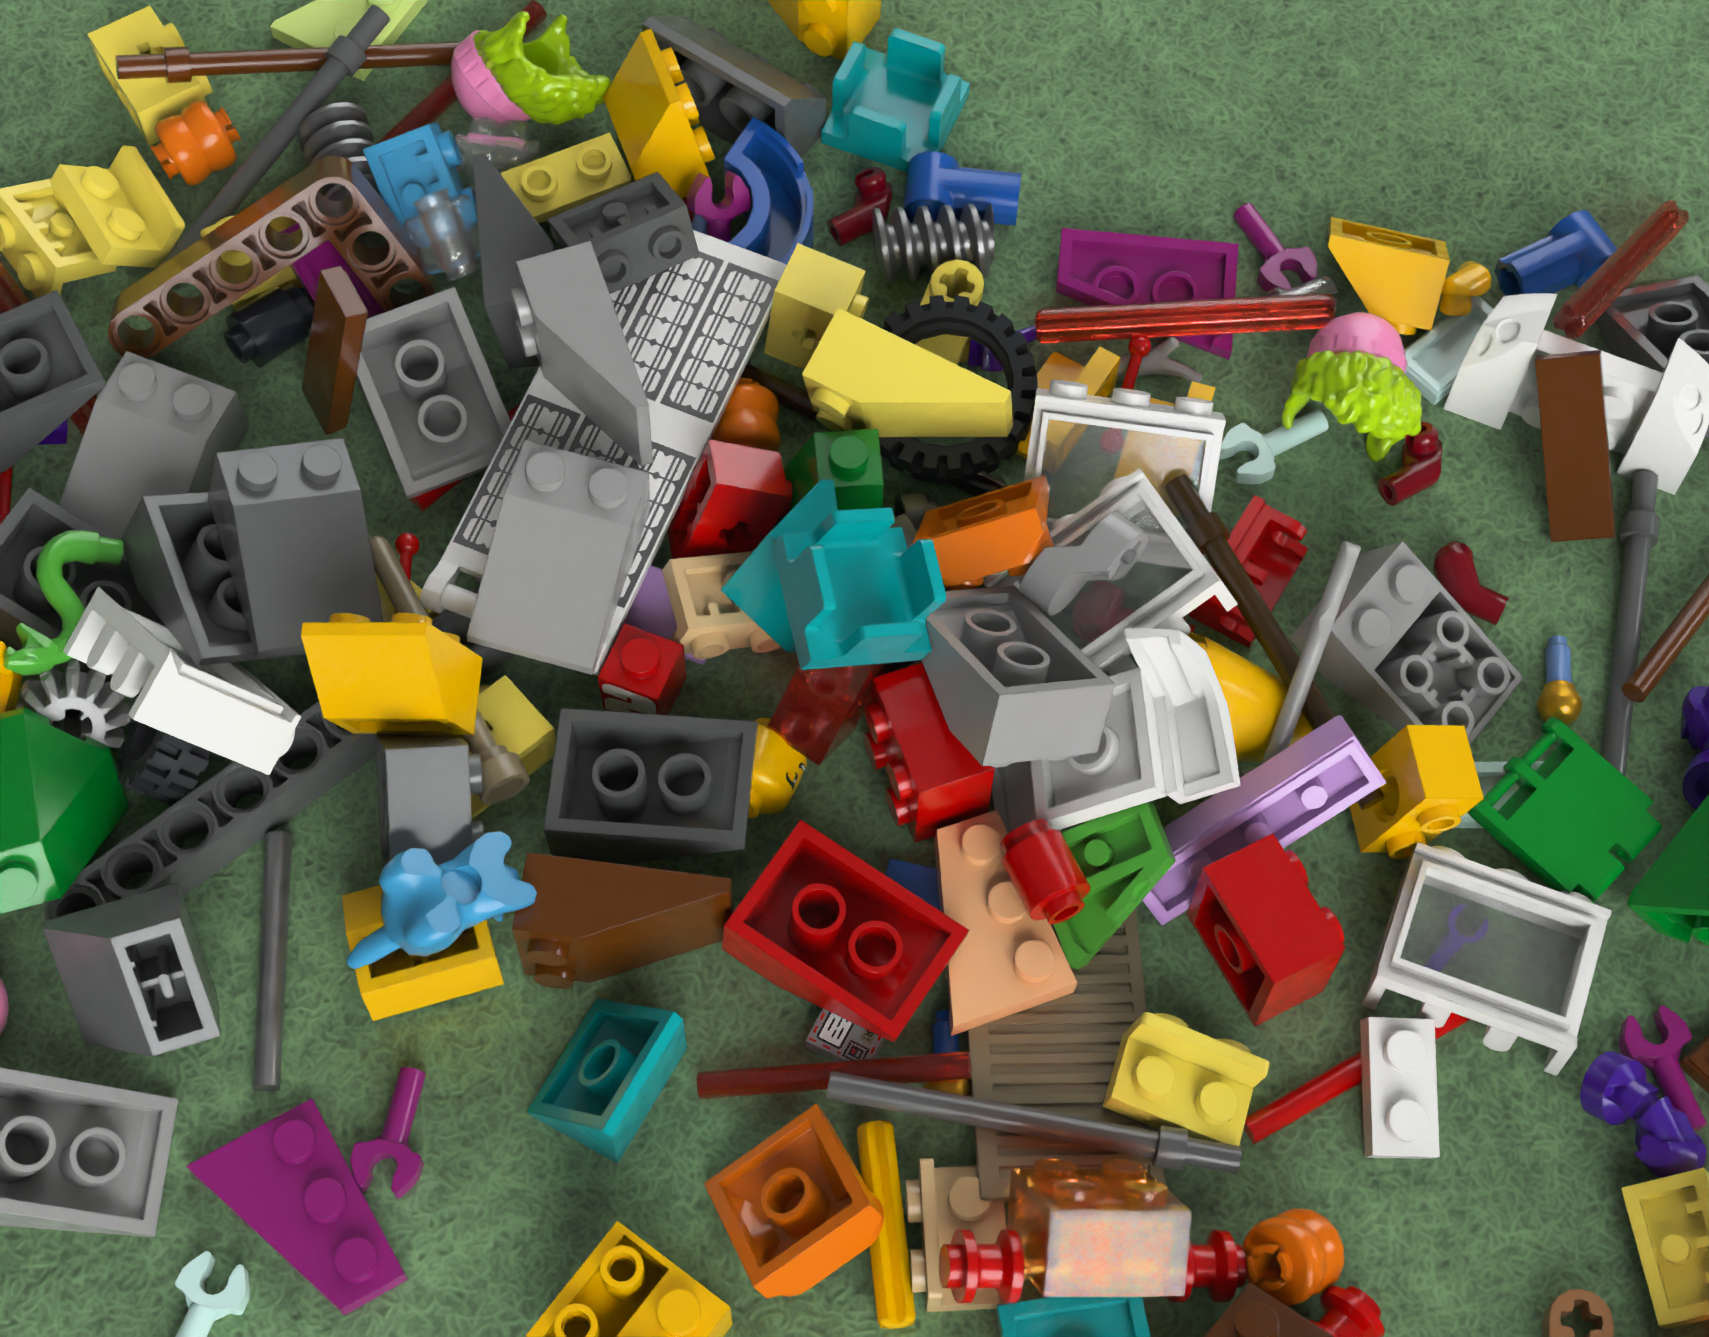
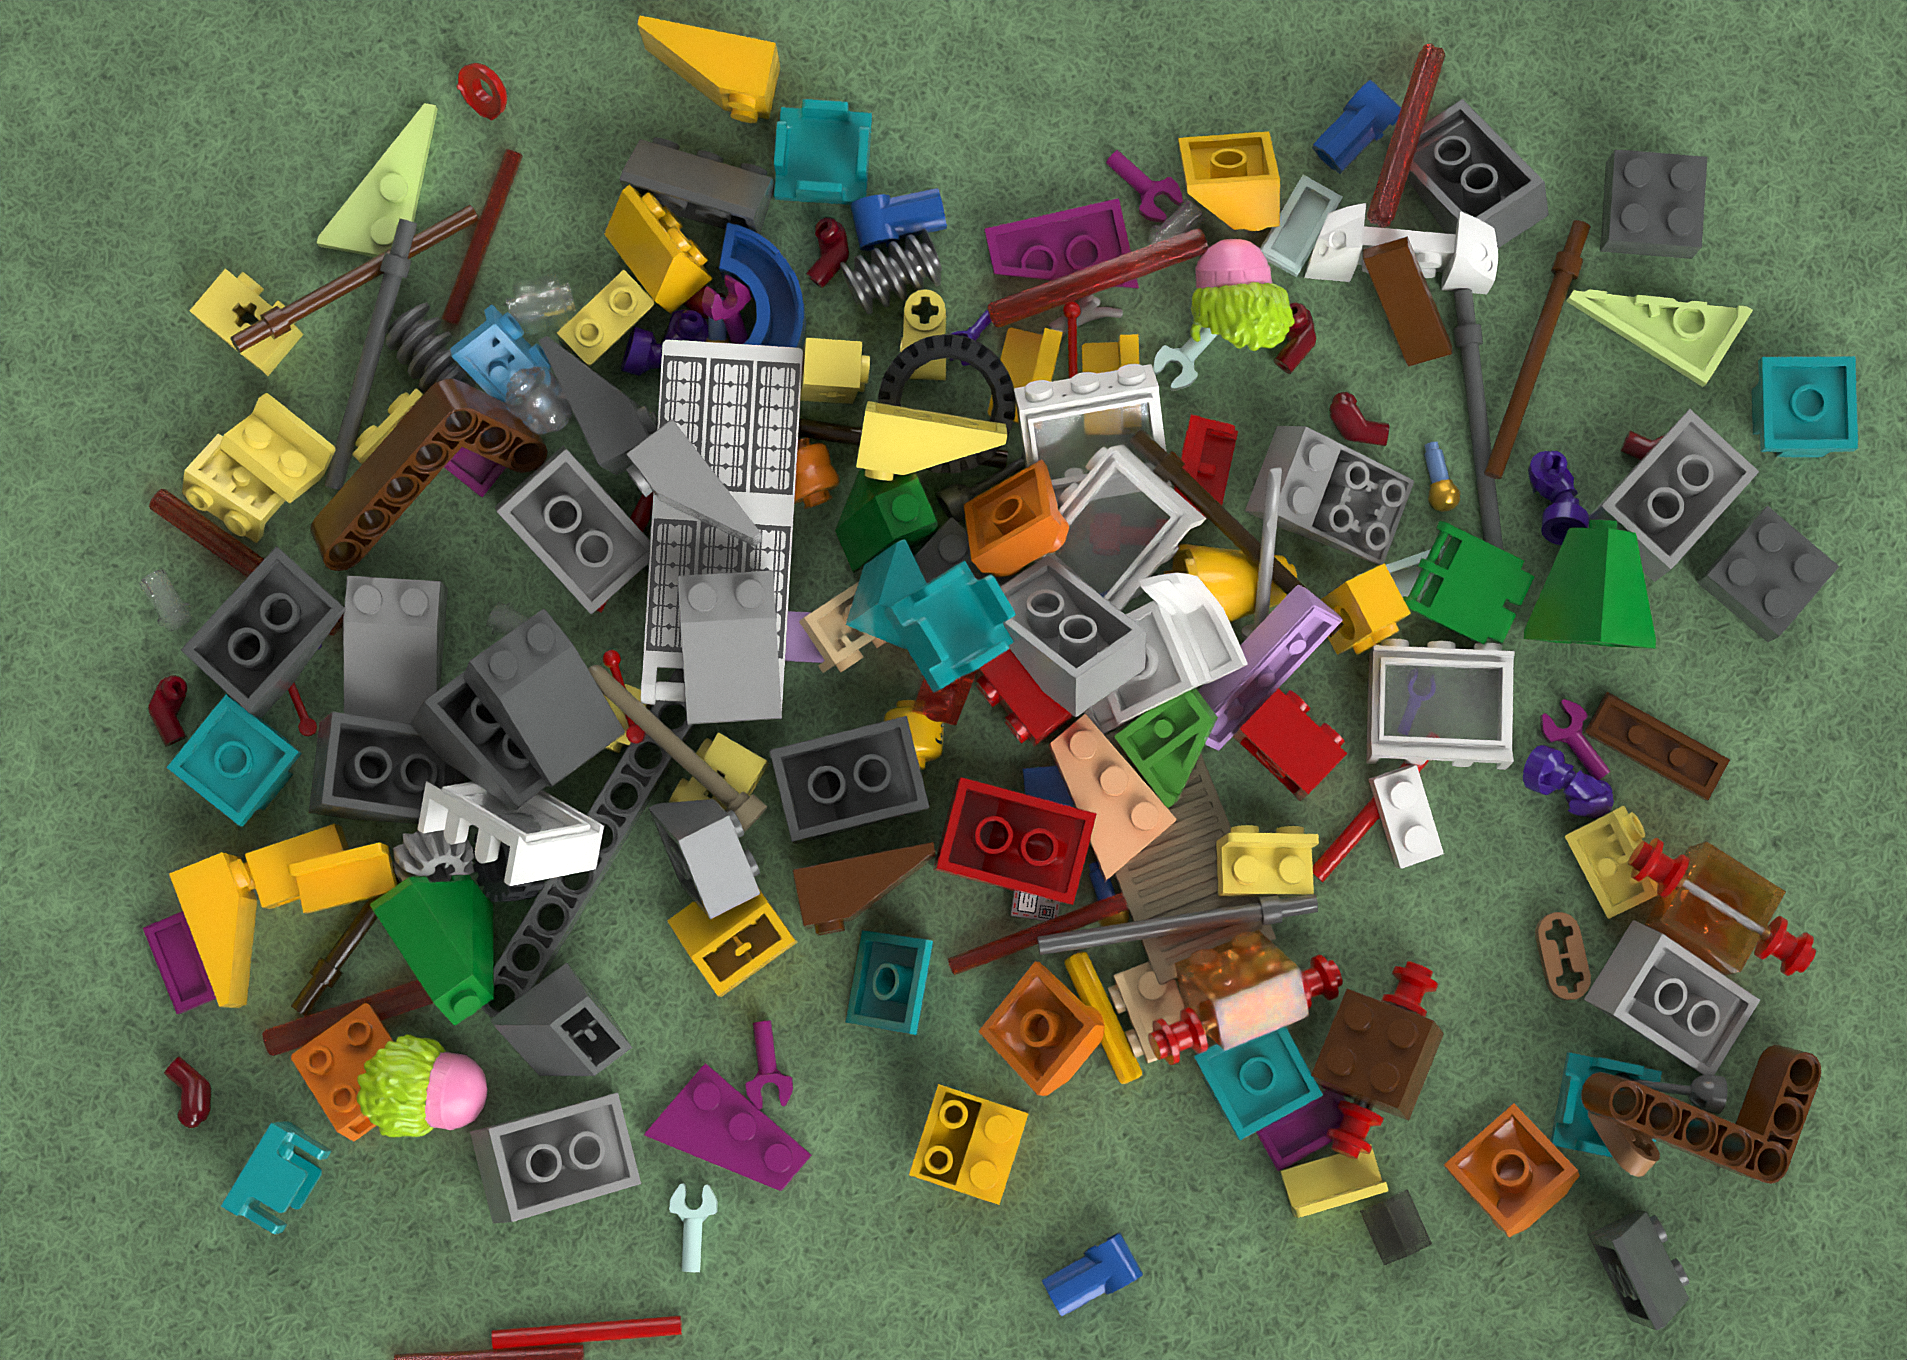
camera: 15 degrees left, 20 degrees up
(38, 651) = (382, 746): bright green animal -> none
(195, 143) = (309, 371): orange piece -> none
(269, 325) = (433, 508): black brick -> none
(272, 962) = (637, 977): flat silver bar -> none
(334, 349) = (500, 529): reddish brown tile -> none
(392, 675) = (656, 779): yellow slope -> none
(433, 904) = (748, 929): dark azure animal -> none
(524, 81) = (538, 232): lime hair -> none
(631, 231) = (677, 371): dark grey bracket -> none
(642, 673) = (809, 695): red brick -> none
(730, 501) = (828, 558): red brick -> none
(1044, 872) = (1133, 757): red brick -> none
(1103, 555) = (1093, 533): light grey piece -> none
(1294, 1255) = (1368, 956): orange piece -> none
(1458, 288) = (1295, 177): yellow arm -> none

